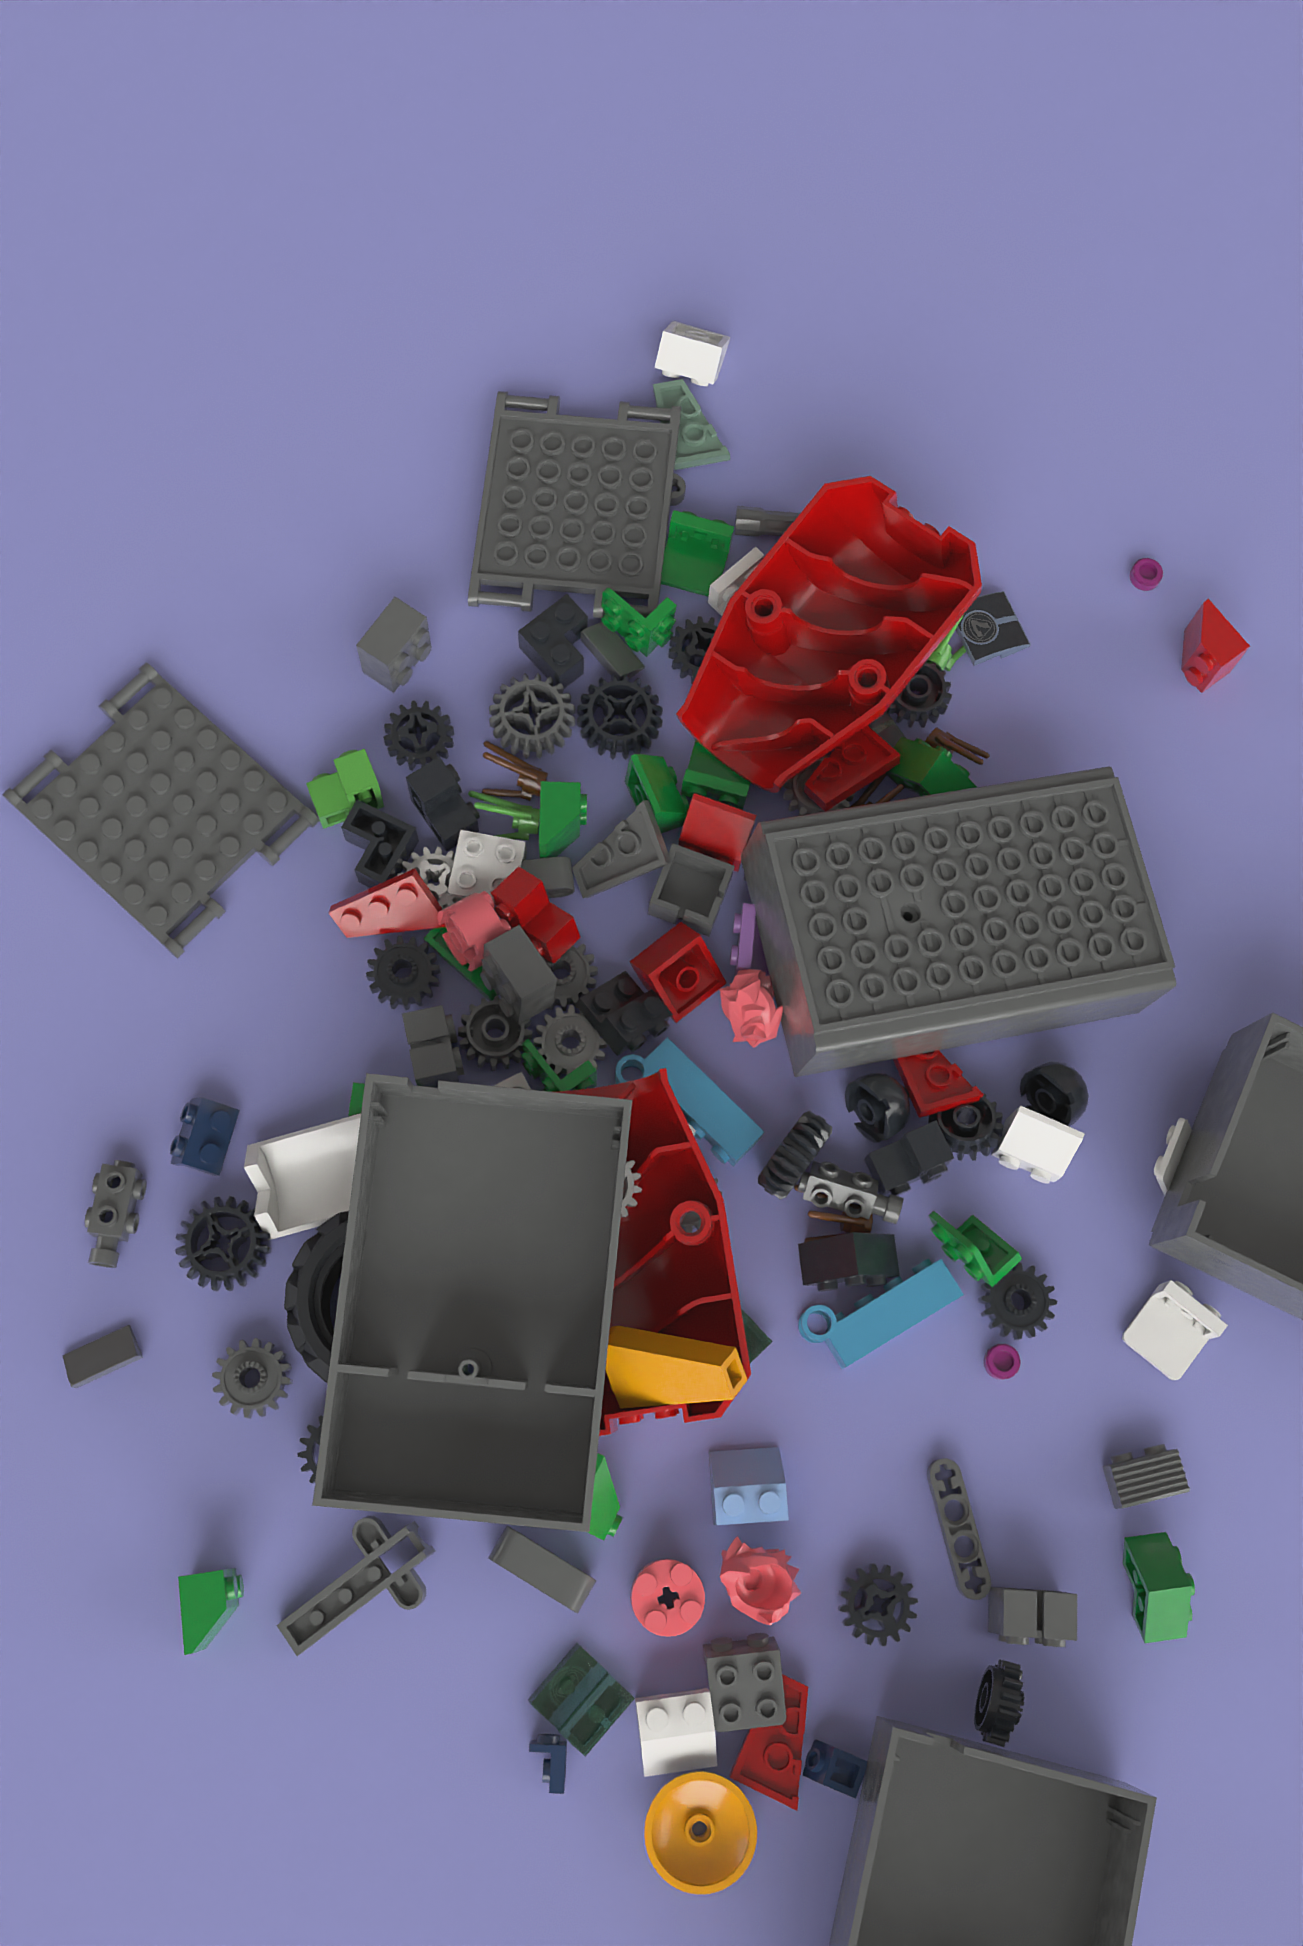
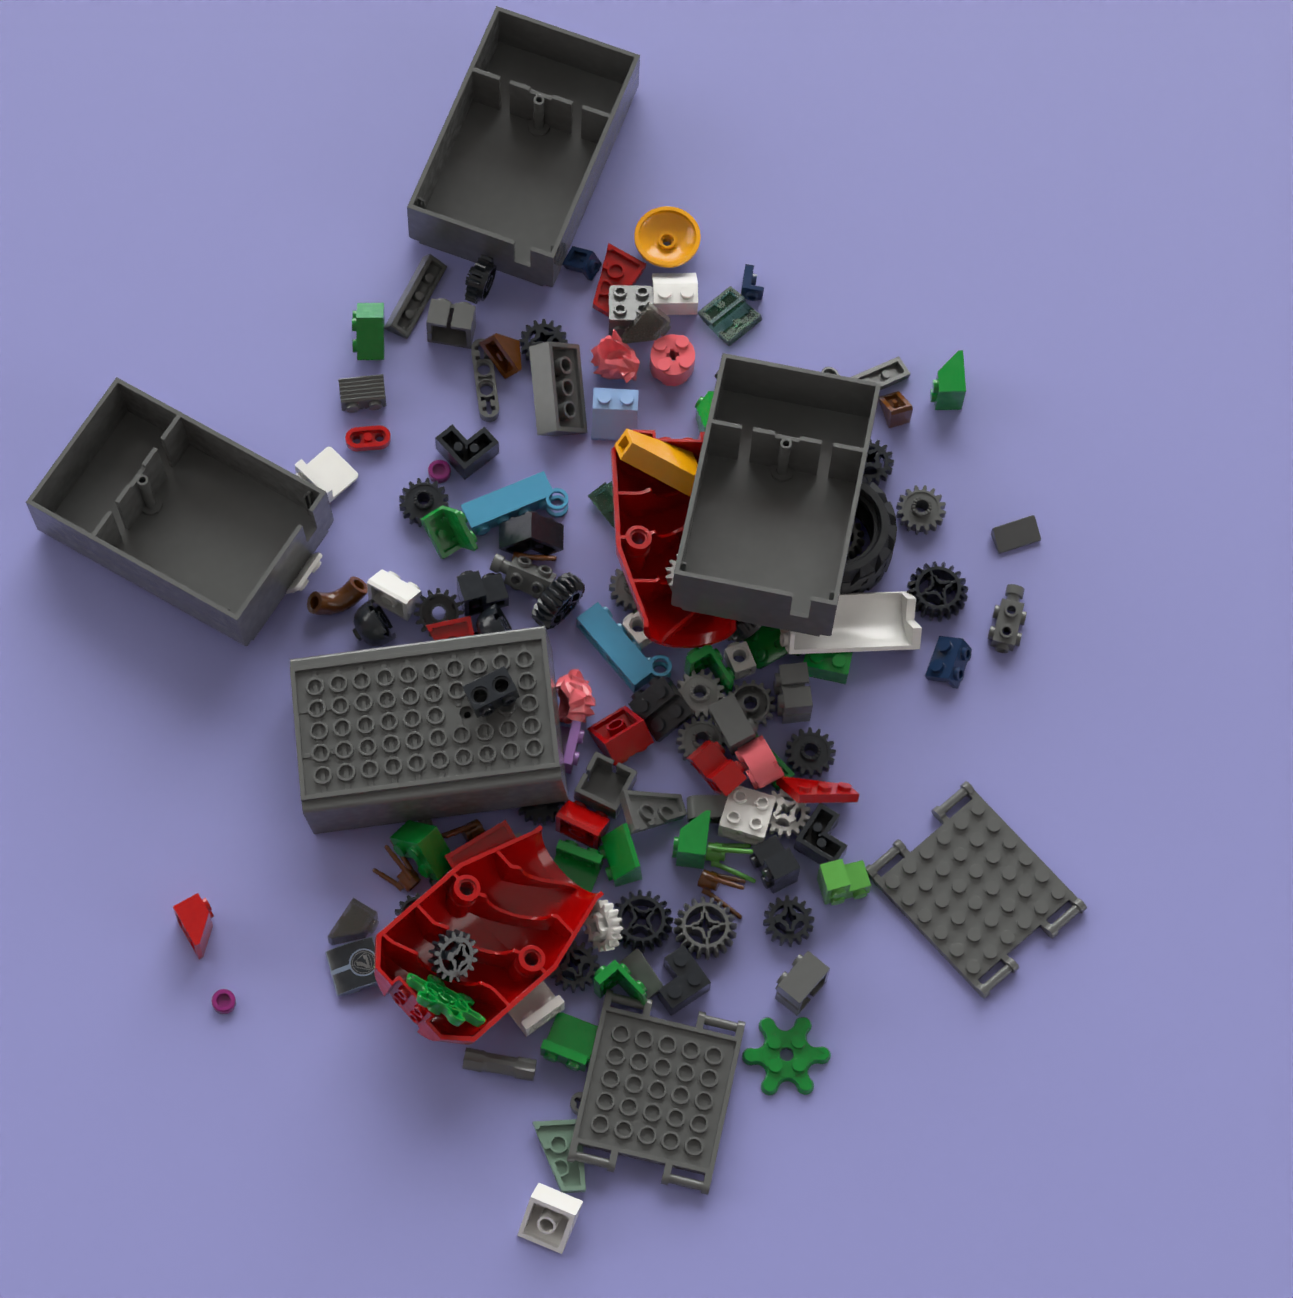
camera: 170 degrees left, 5 degrees down
(299, 1558) = (895, 409): none -> reddish brown slope
(422, 553) = (782, 1071): none -> green plate
(666, 690) = (603, 926): none -> white gear
(716, 1641) = (647, 325): none -> clear smoke slope
(843, 1514) = (558, 389): none -> dark grey slope
(862, 543) = (443, 1000): none -> green plate
(871, 593) = (453, 955): none -> black gear
(885, 932) = (488, 687): none -> black brick
(936, 1571) = (503, 353): none -> reddish brown slope
(970, 1383) = (464, 454): none -> black brick
(999, 679) = (354, 923): none -> clear smoke slope
(1092, 1671) = (415, 296): none -> dark grey slope
(1115, 1130) = (338, 600): none -> reddish brown cylinder
(1119, 1401) = (368, 438): none -> red plate

